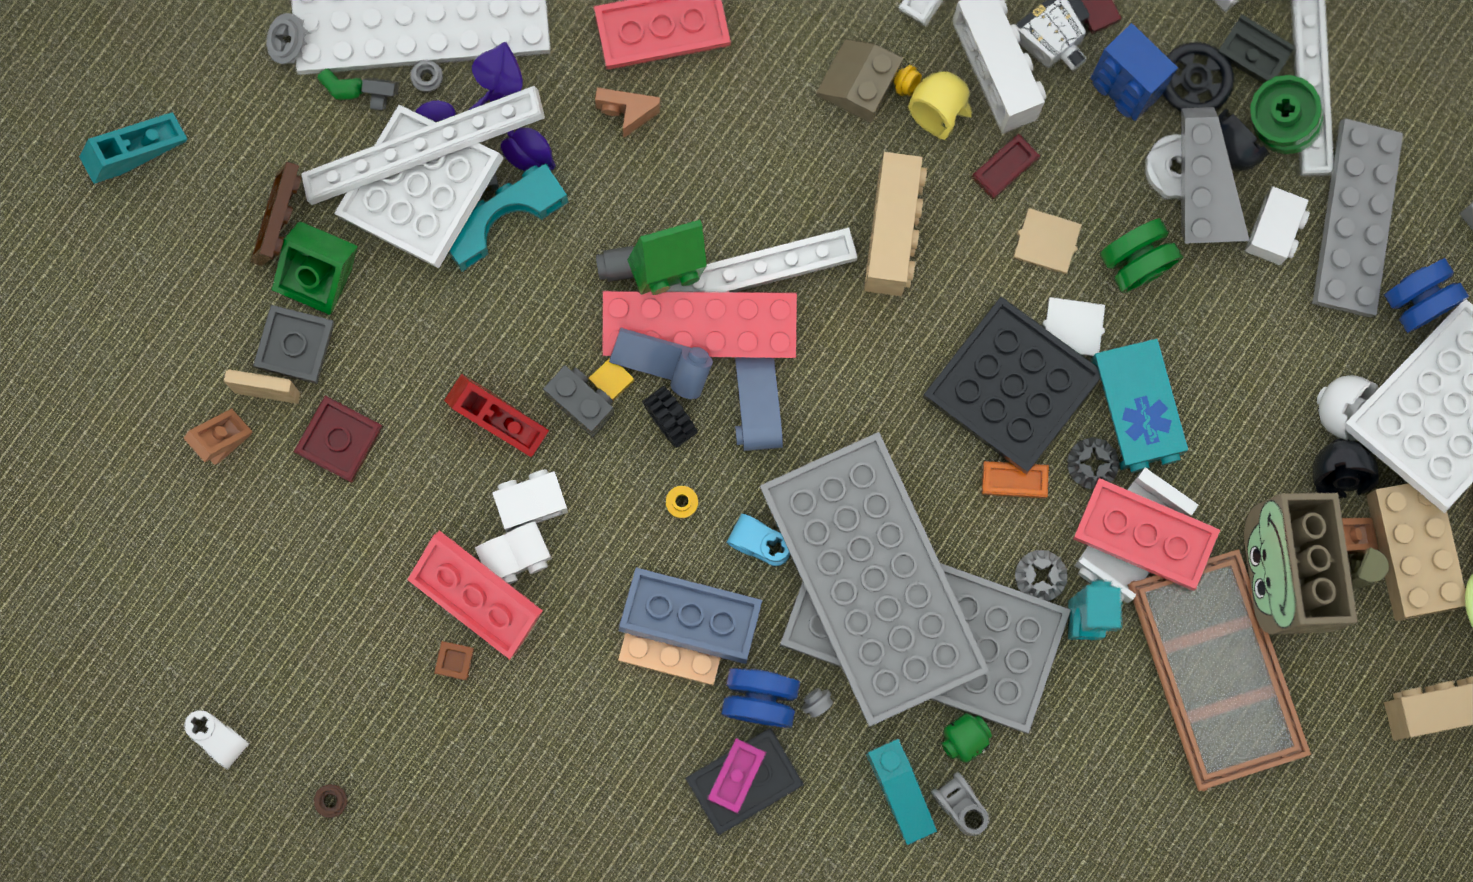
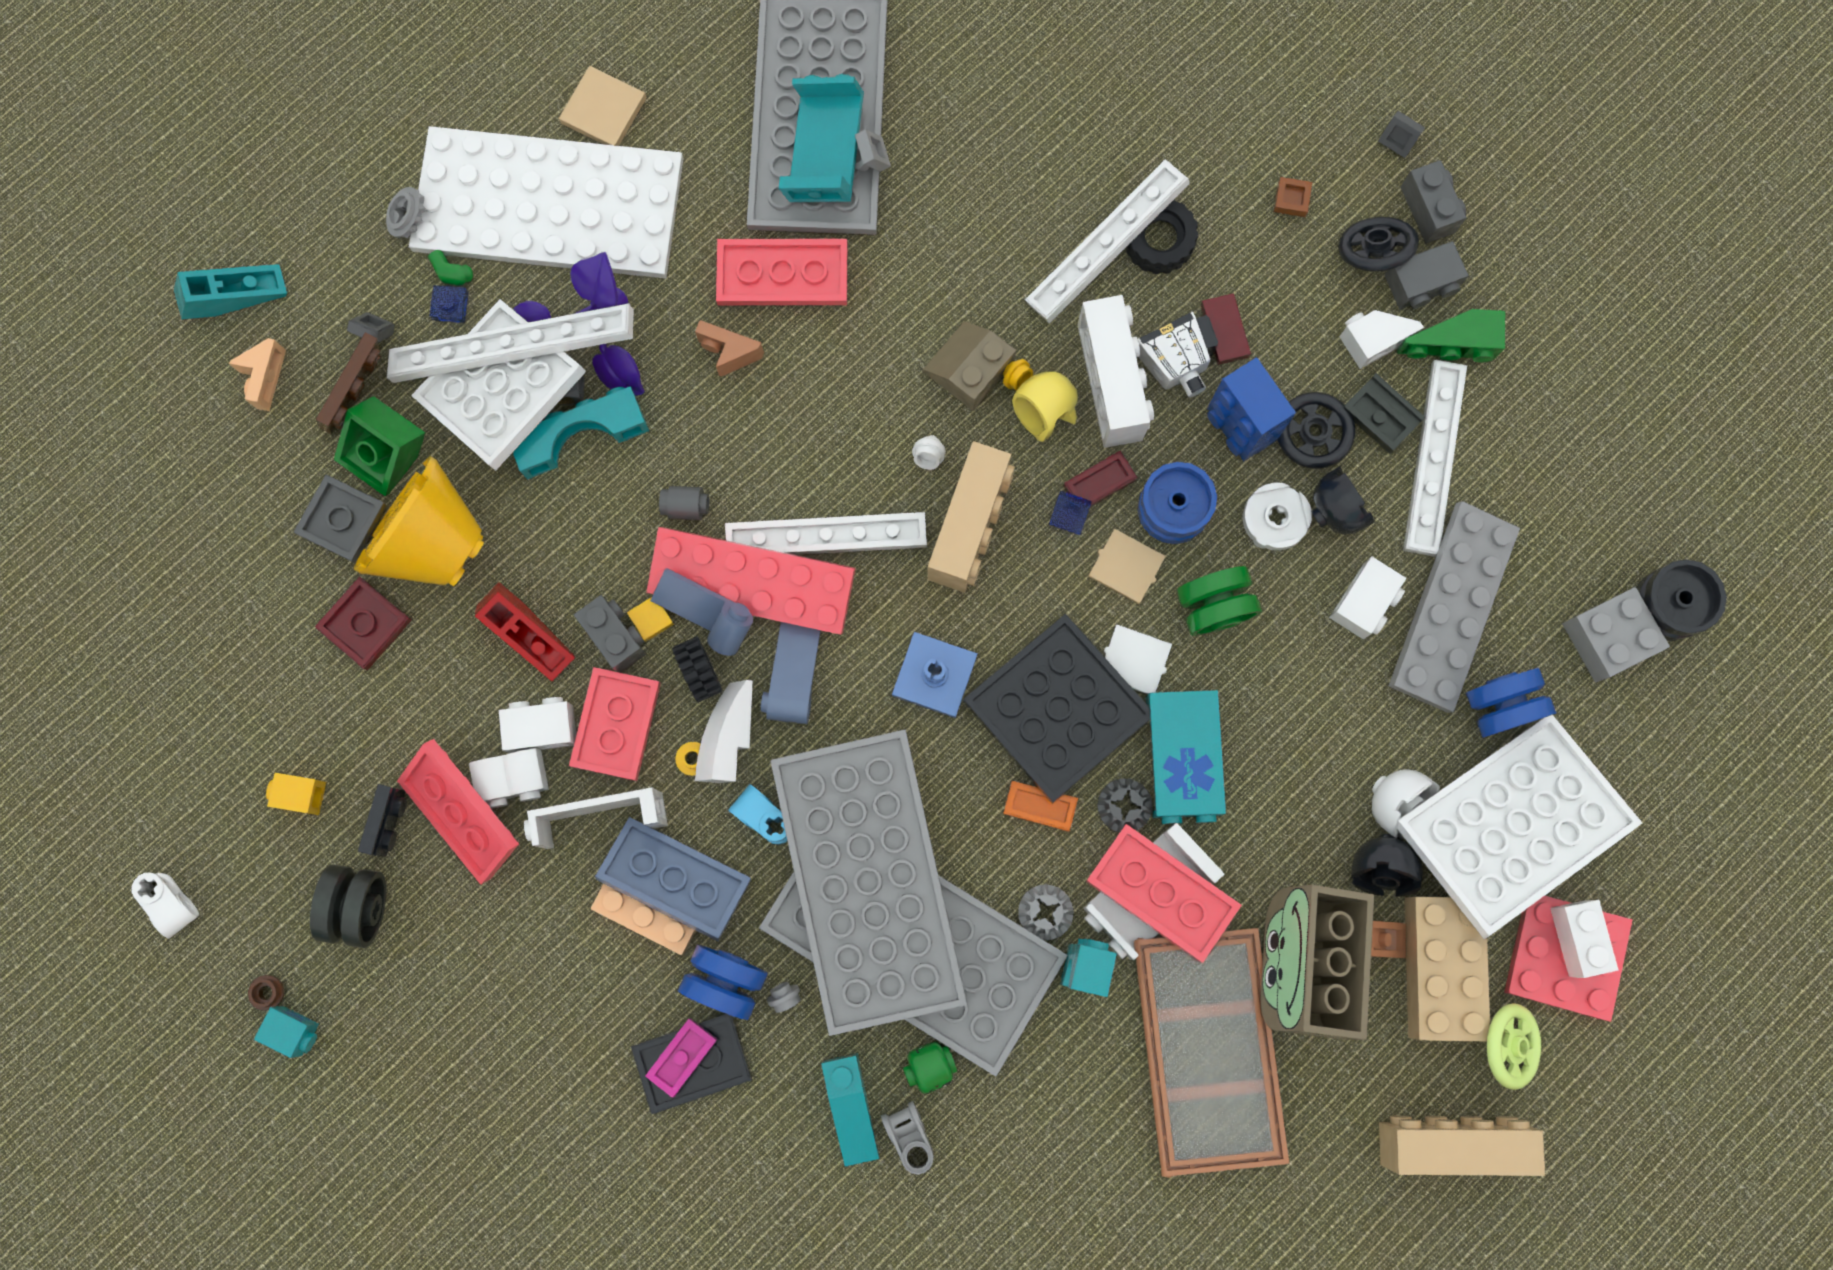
camera: 20 degrees right, 0 degrees up
(182, 211) = (264, 366): none -> light nougat slope
(218, 436) = (240, 596): nougat slope -> none
(262, 386) = (293, 554): tan tile -> none
(278, 154) = (372, 325): none -> dark grey tile
(314, 610) = (295, 793): none -> yellow brick
(347, 118) = (449, 304): none -> clear blue plate
(361, 831) = (287, 1032): none -> teal brick
(380, 90) = (485, 283): dark grey tile -> none
(381, 338) = (423, 533): none -> yellow cone
(399, 701) = (348, 906): none -> pearl dark grey wheel
(407, 604) = (379, 829): none -> black plate
(426, 67) = (530, 270): light grey plate -> none
(454, 661) = (423, 874): dark orange plate -> none
(601, 484) = (615, 724): none -> coral plate
(650, 543) = (538, 824): none -> white panel
(669, 258) = (729, 506): green slope -> none
(709, 472) = (725, 734): none -> white slope
(839, 171) = (928, 452): none -> white plate
(890, 378) = (934, 675): none -> medium blue tile
(984, 201) = (1070, 512): none -> clear blue plate
(1090, 155) = (1187, 486): none -> blue wheel
(1208, 188) = (1303, 544): light grey wedge -> none
(1283, 96) = (1407, 466): green wheel -> none
(1368, 568) = (1390, 979): olive brick -> none

